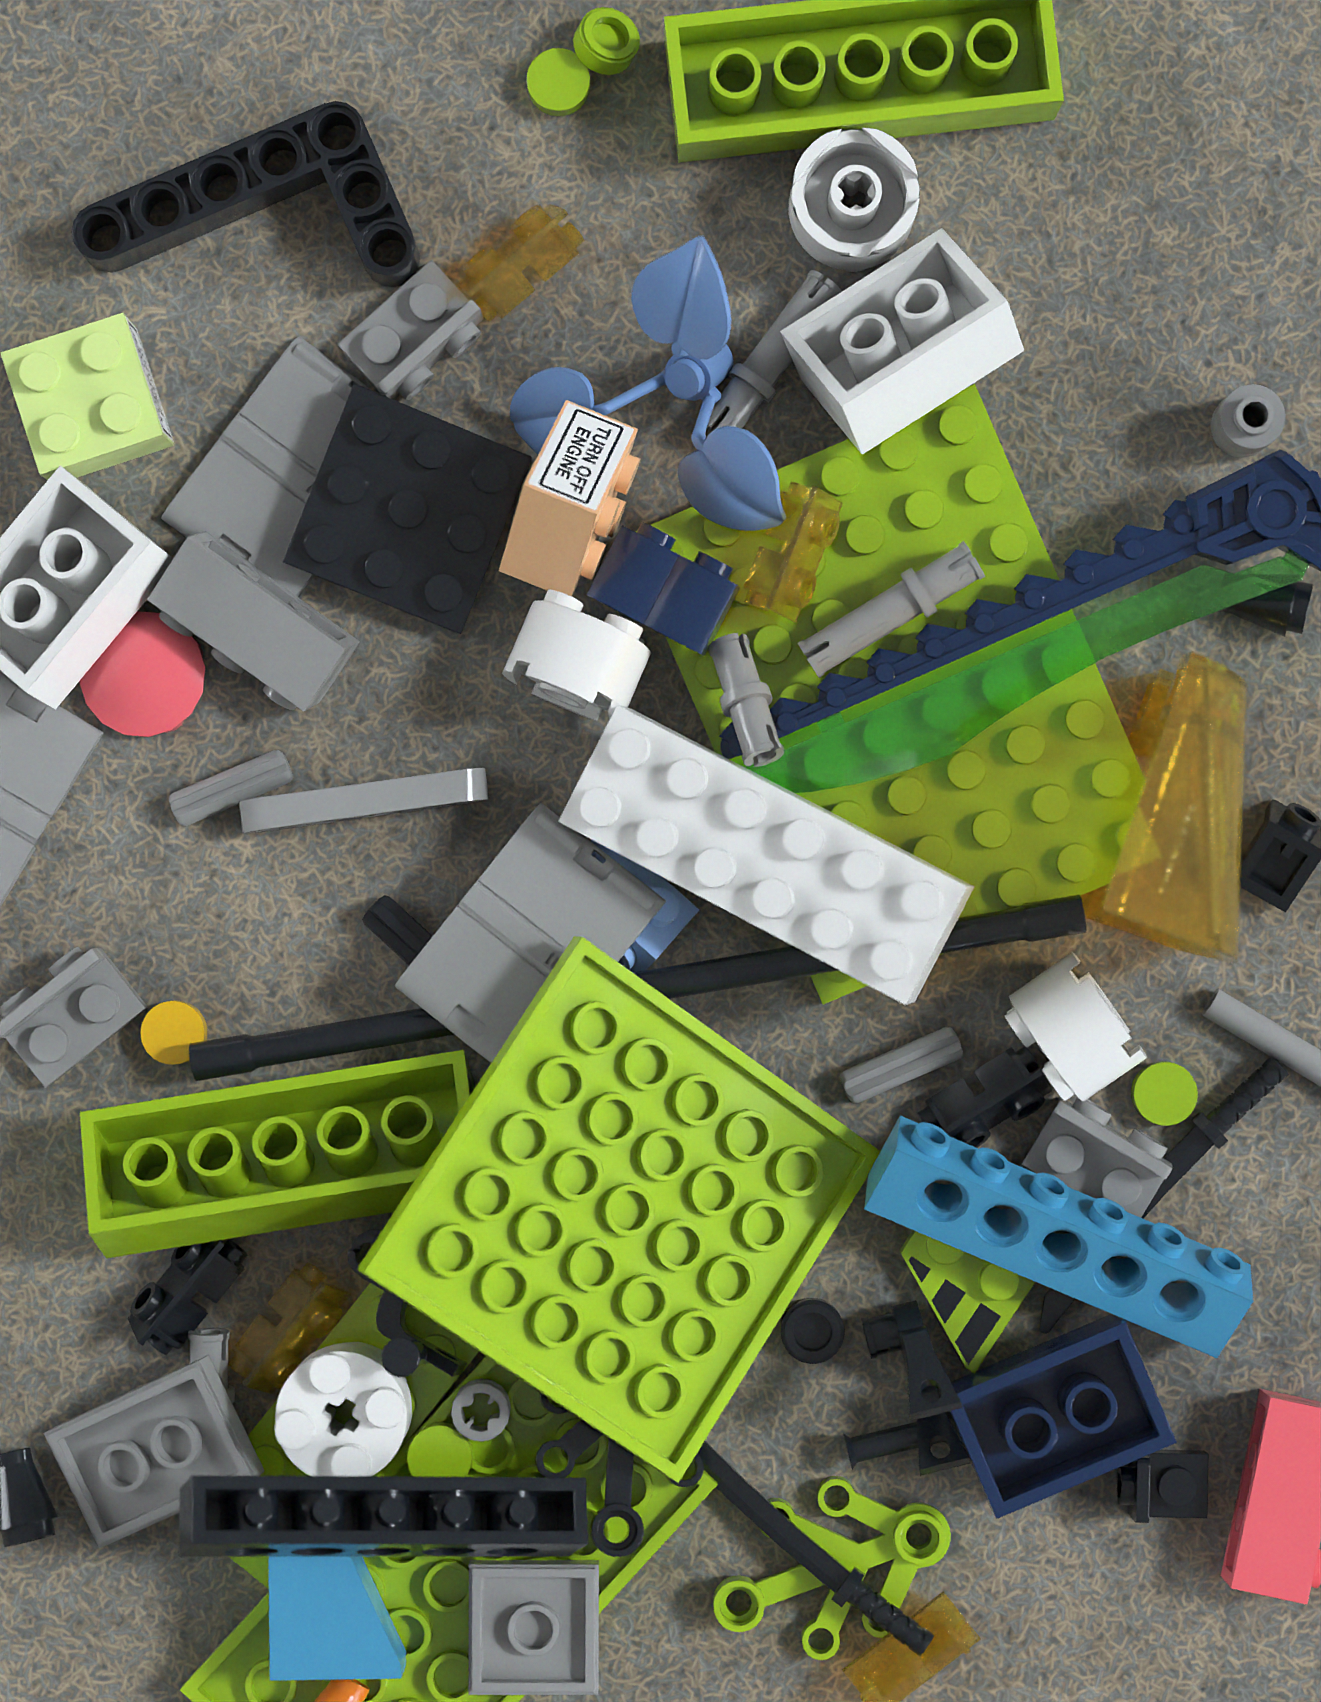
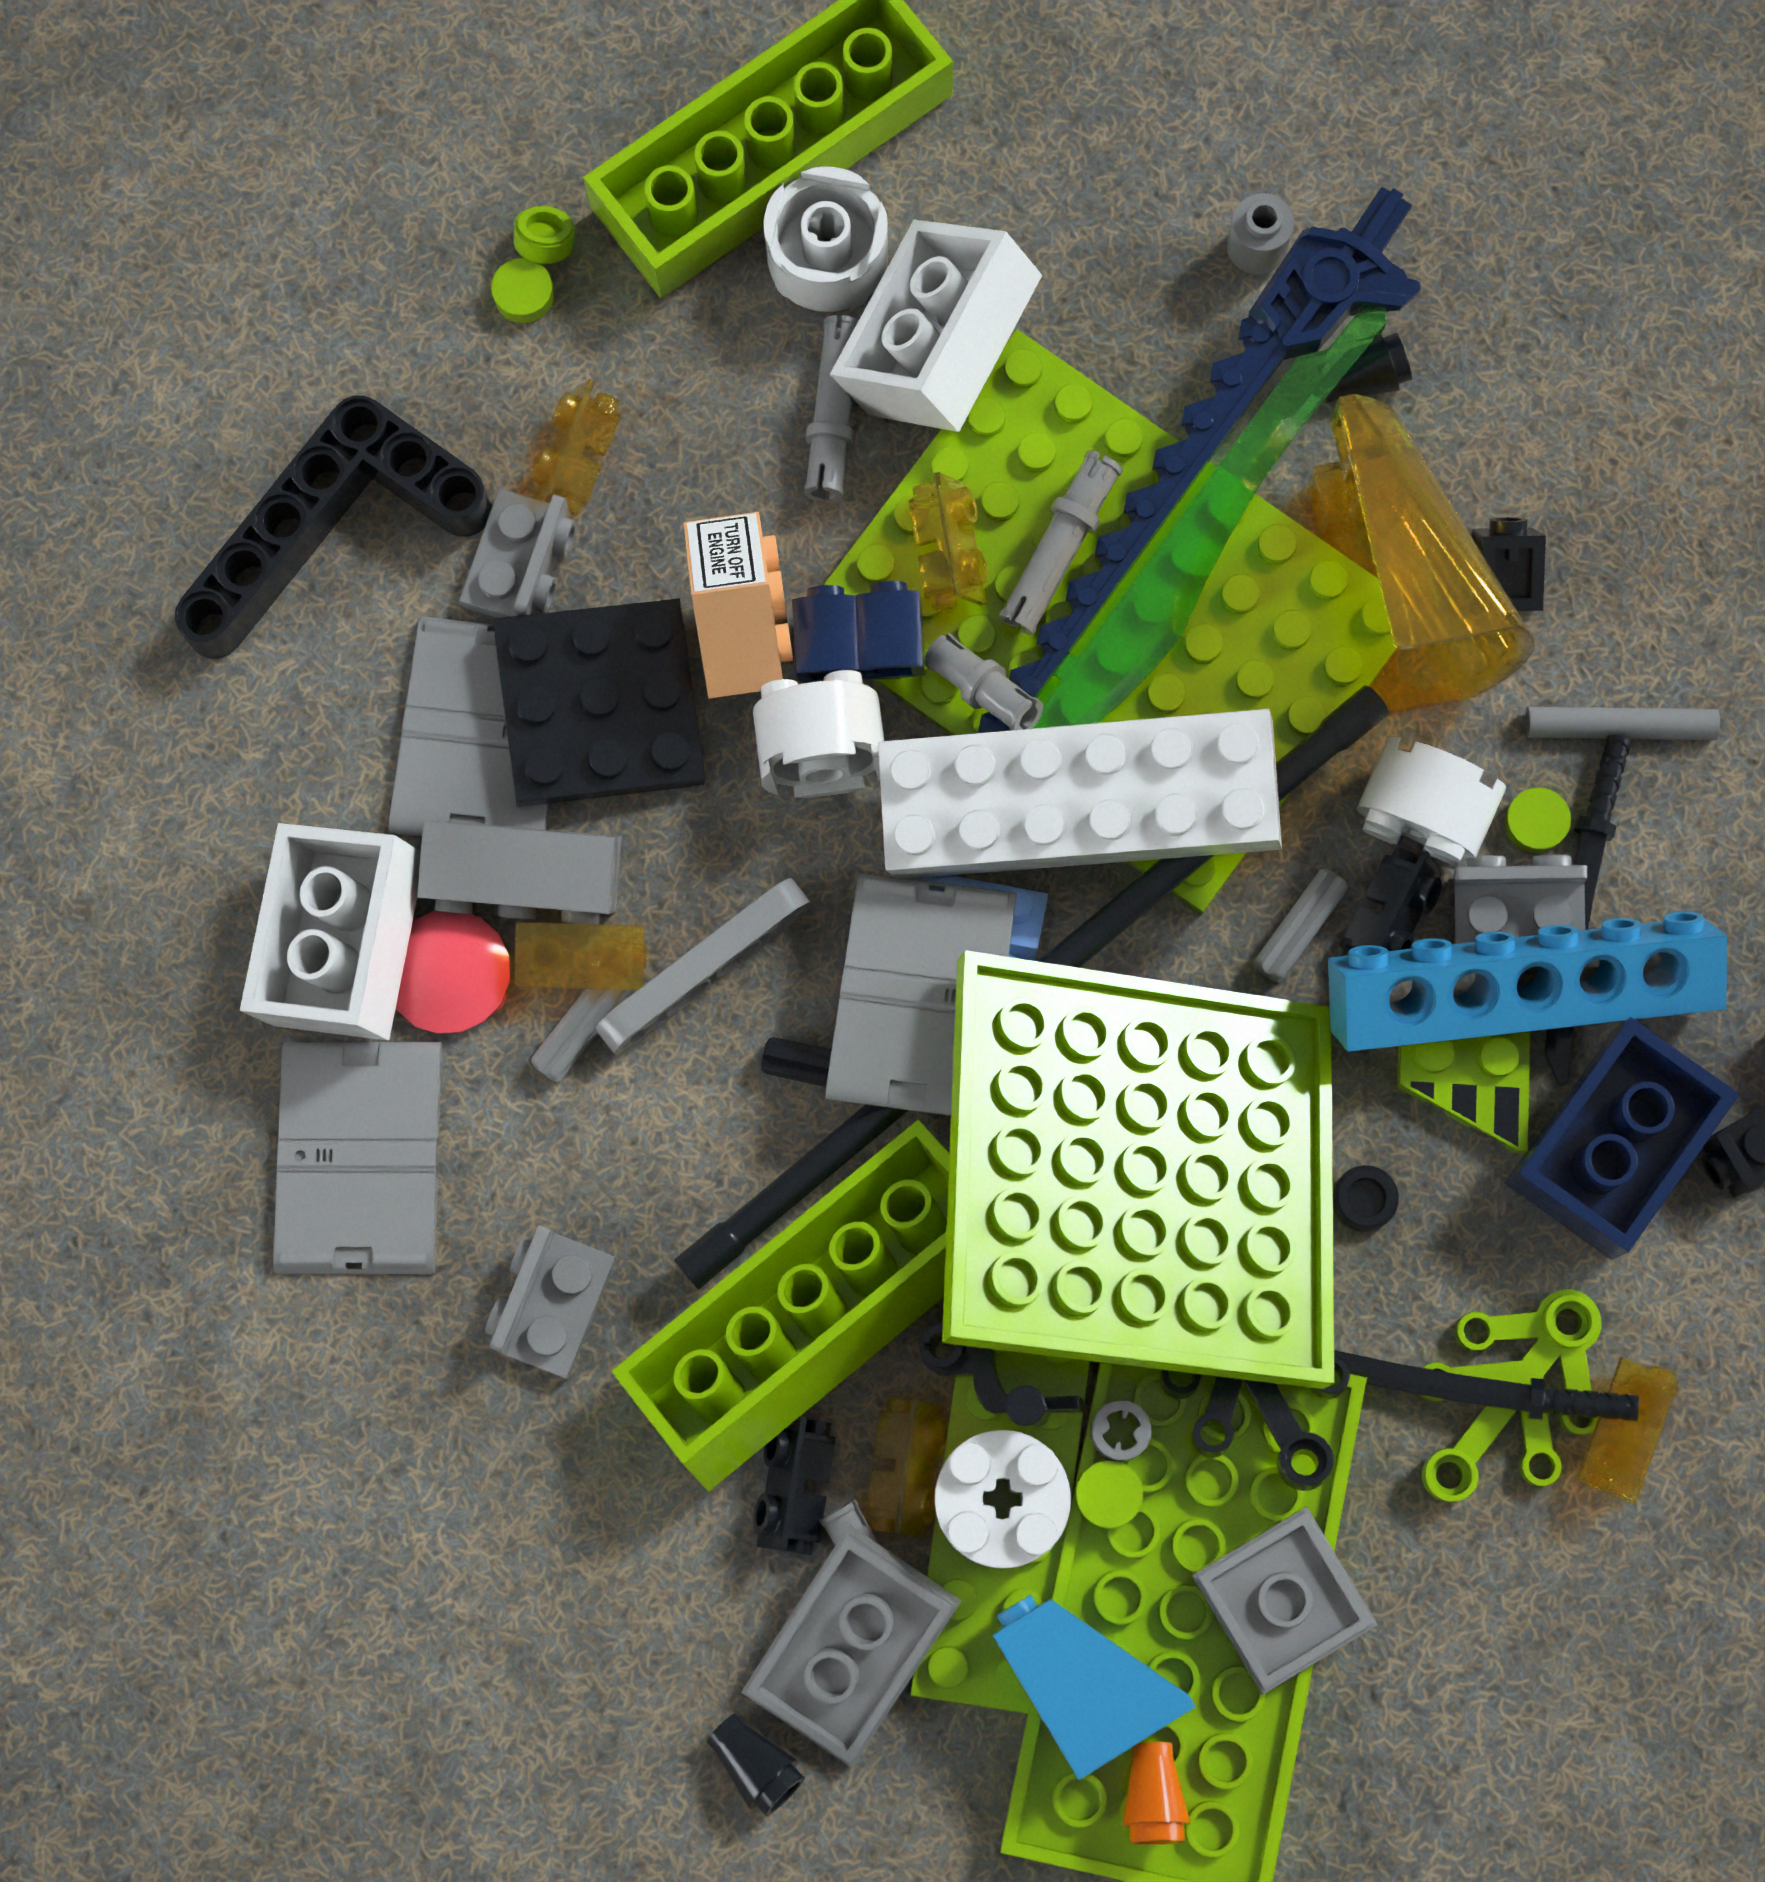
camera: 30 degrees left, 10 degrees down
(87, 398) = (268, 760): yellowish green brick -> none
(171, 1029) = (649, 1265): yellow tile -> none
(260, 731) = (580, 956): none -> clear yellow hinge
(381, 1516) = (1091, 1562): black brick -> none
(683, 304) = (744, 381): medium blue plant -> none
(906, 1332) = (1475, 1158): black piece -> none

